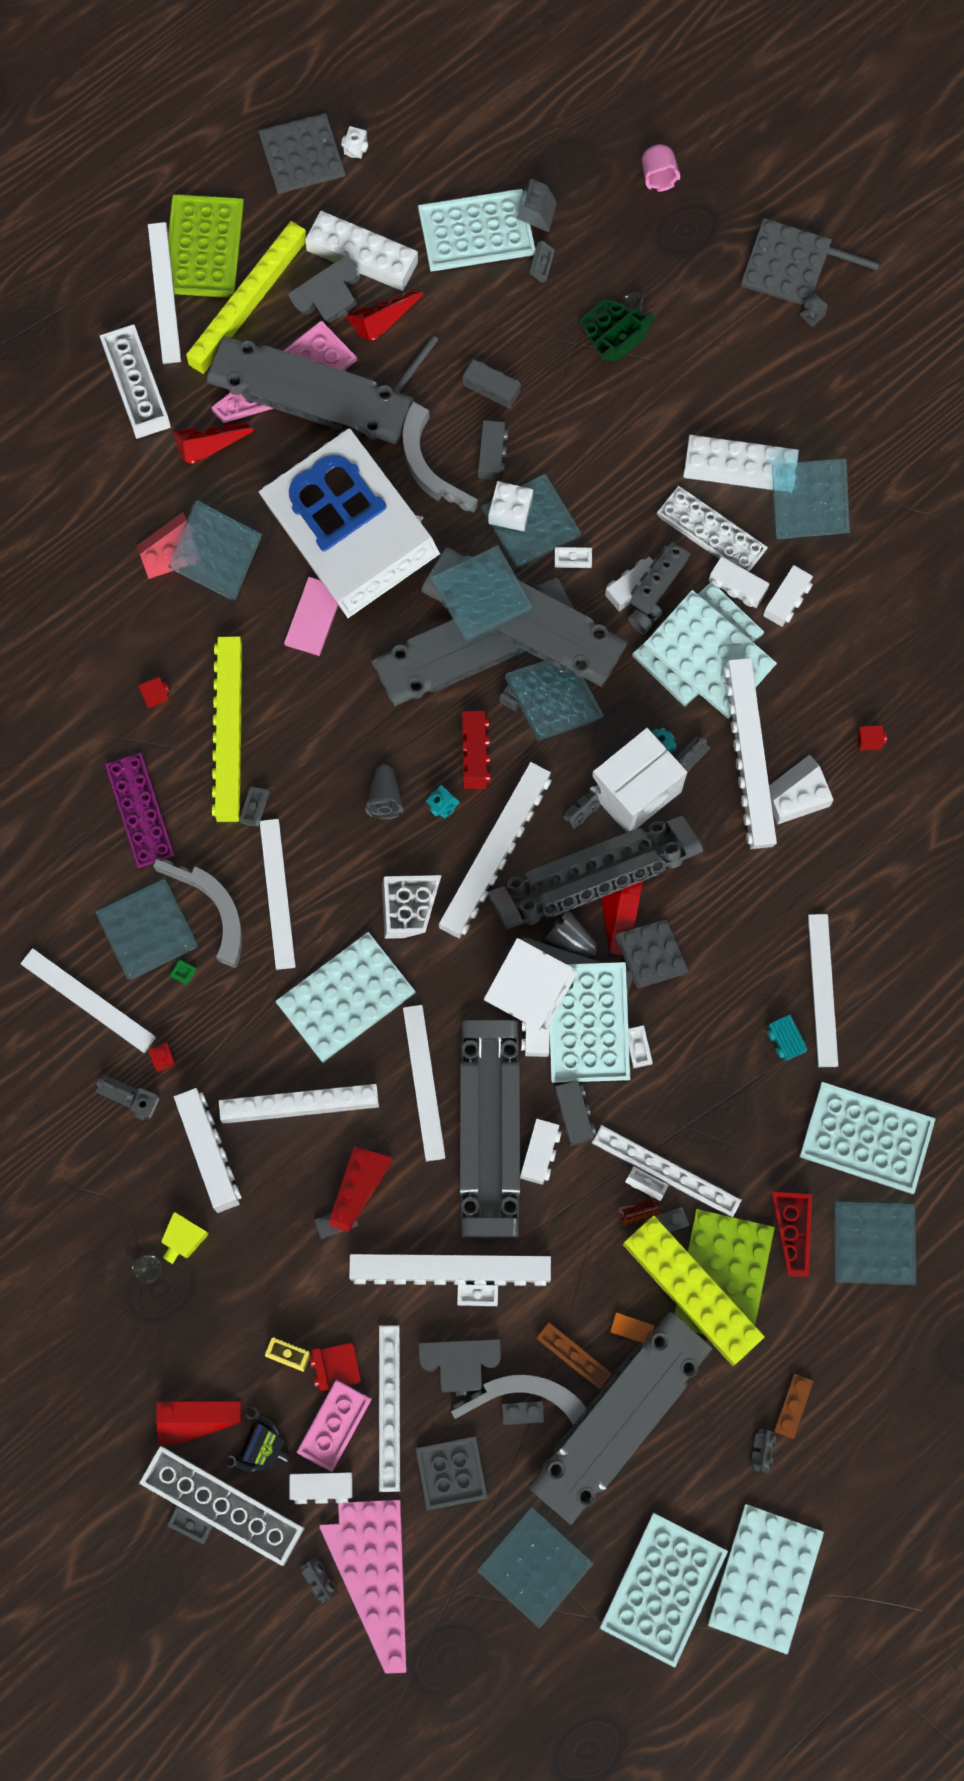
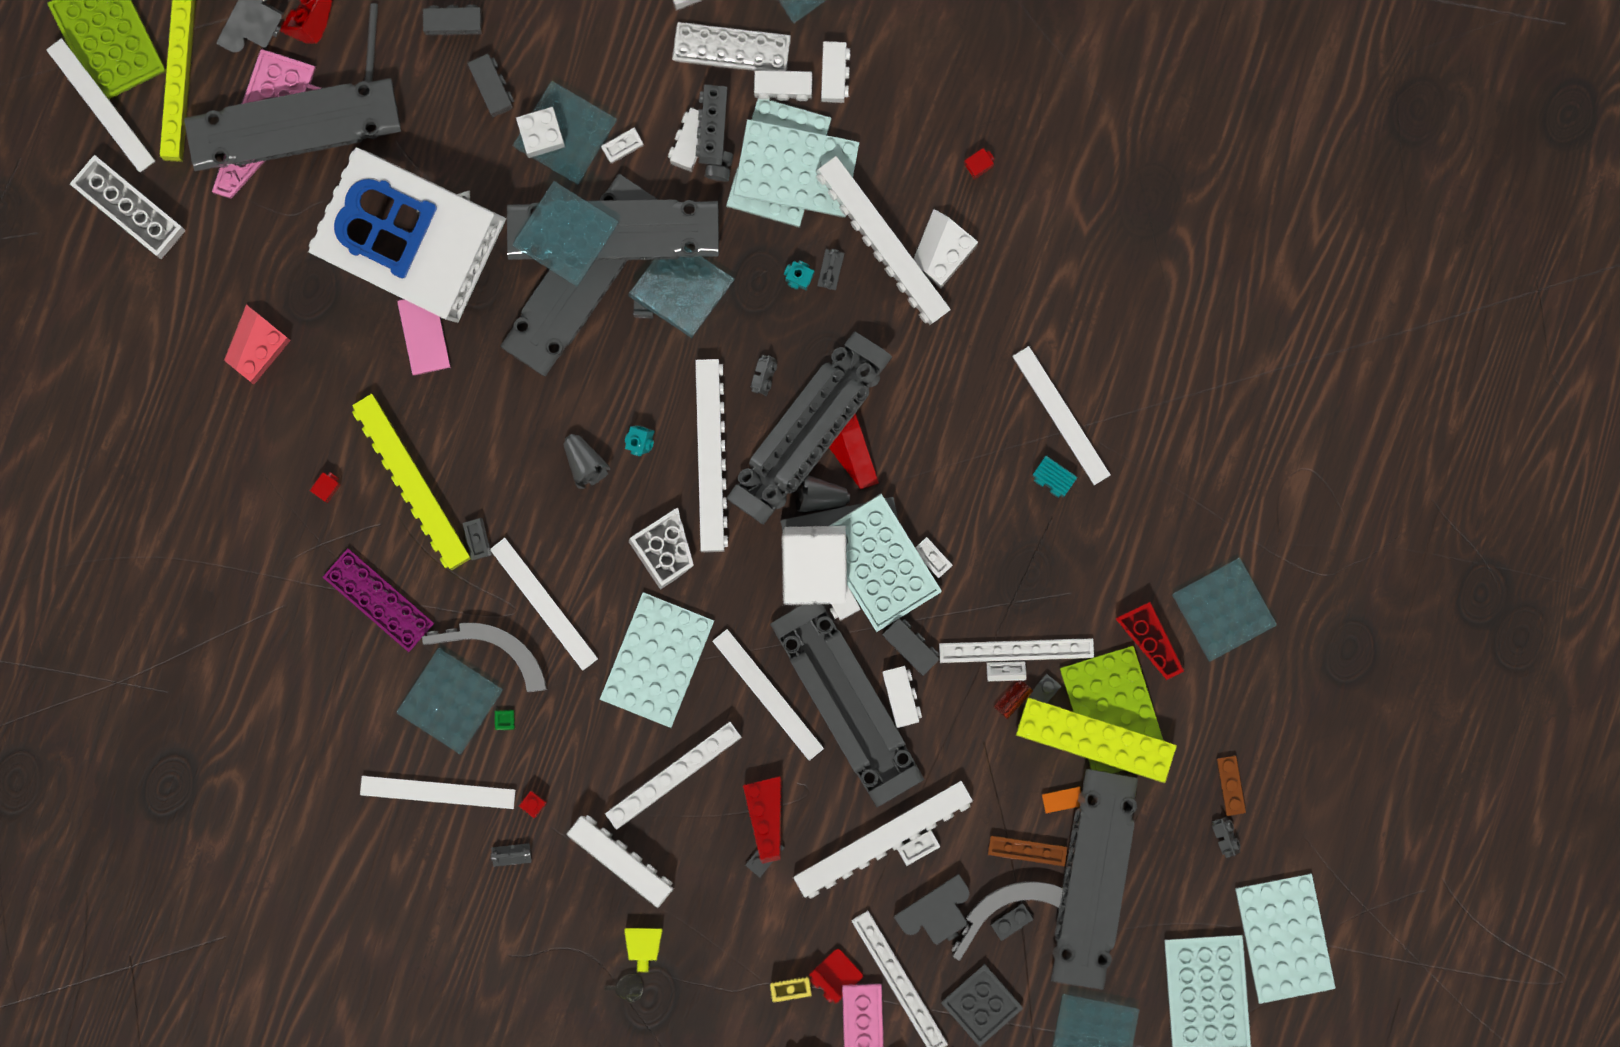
camera: 25 degrees left, 10 degrees up
(146, 1112) = (546, 846): dark grey brick -> none
(197, 445) = (224, 230): red wedge -> none
(215, 550) = (300, 326): clear light blue plate -> none
(422, 474) = (426, 135): light grey arch -> none
(474, 749) = (639, 376): red wedge -> none
(638, 781) = (800, 325): white piece -> none
(651, 953) = (898, 470): dark grey plate -> none
(867, 1138) = (1169, 523): light aqua plate -> none

